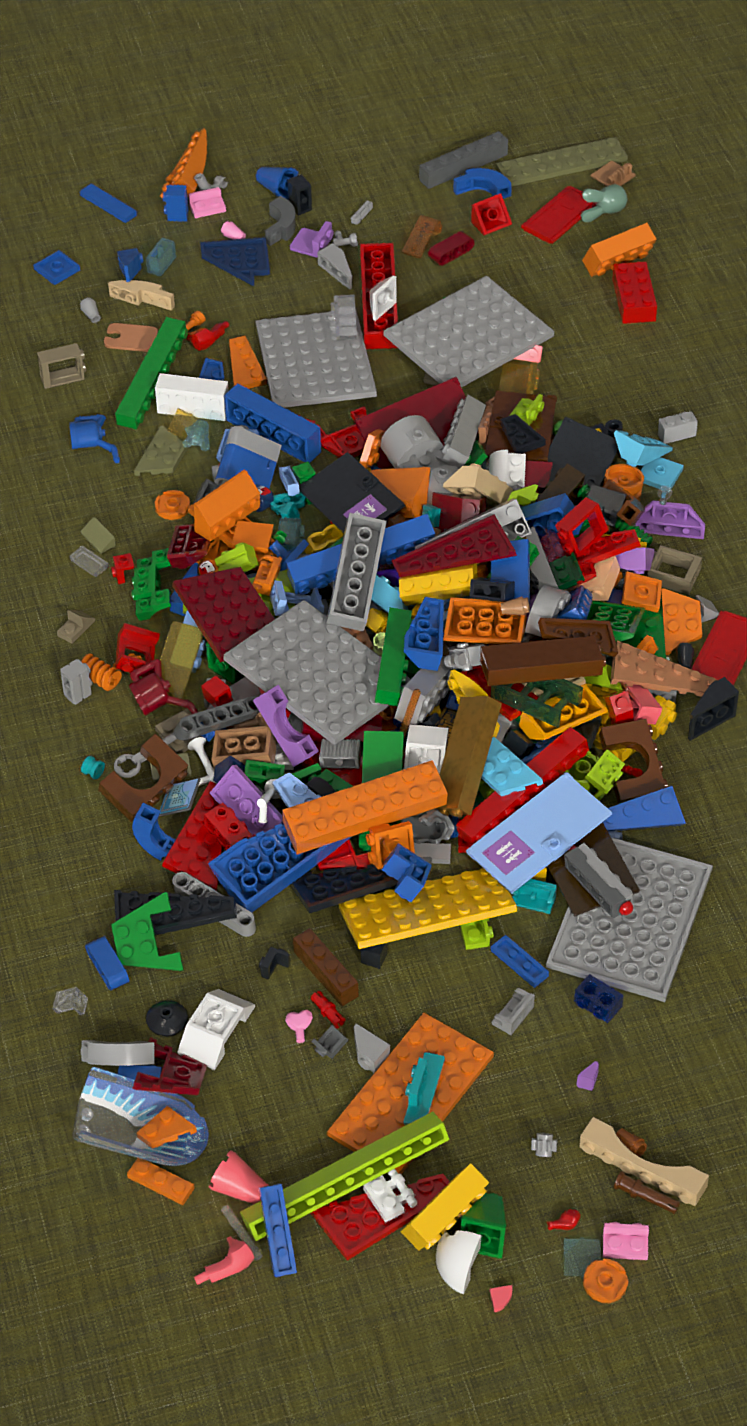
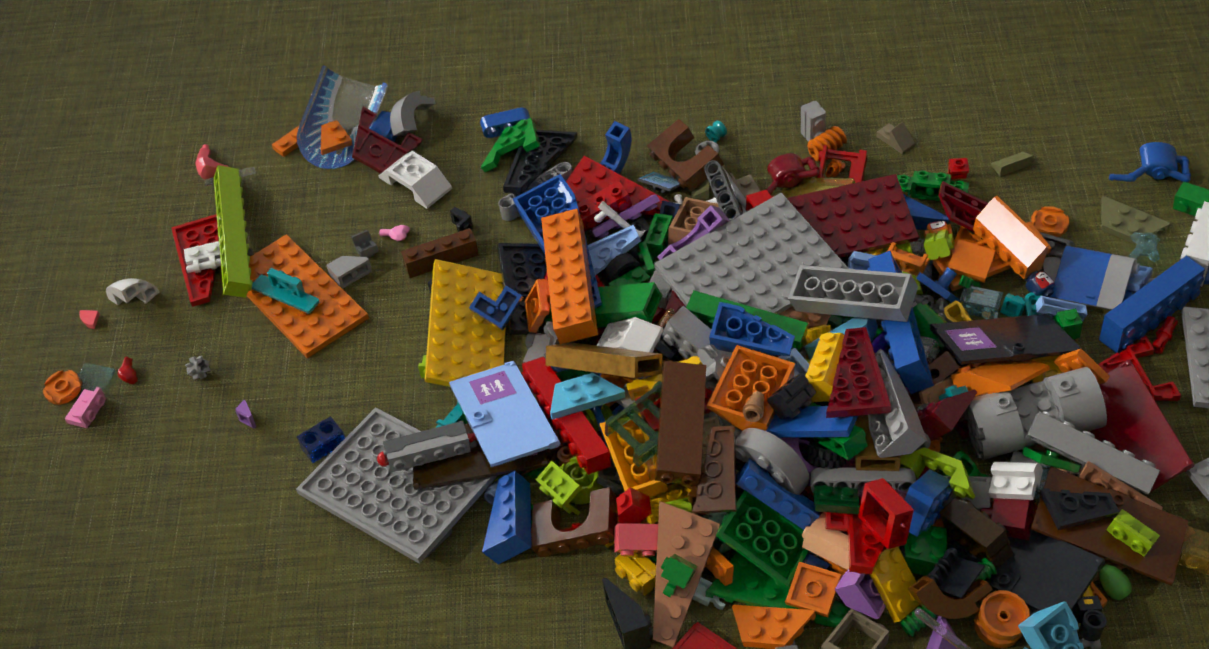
camera: 110 degrees right, 0 degrees up
(69, 1000) = (477, 100): clear bracket -> none
(89, 561) = (980, 153): clear tile -> none
(166, 1024) = (443, 156): black dish -> none
(180, 421) = (1171, 240): clear yellow piece -> none
(237, 1180) = (265, 173): coral cone -> none
(277, 1230) = (204, 181): blue plate -> none
(328, 1009) = (395, 254): red pin -> none
(446, 1205) = (167, 283): yellow brick -> none
(478, 482) = (967, 431): tan slope -> none
(489, 1221) = (146, 313): green slope -> none
(514, 1011) = (338, 376): light grey hinge -> none
(520, 961) = (389, 391): blue plate -> none
(632, 1142) = (169, 431): dark orange cone -> none
(636, 1188) = (126, 425): reddish brown pin -> none
(672, 662) = (678, 572): none -> green brick
(682, 1181) = (113, 457): tan arch -> none
(685, 654) = (719, 621): black cone -> none

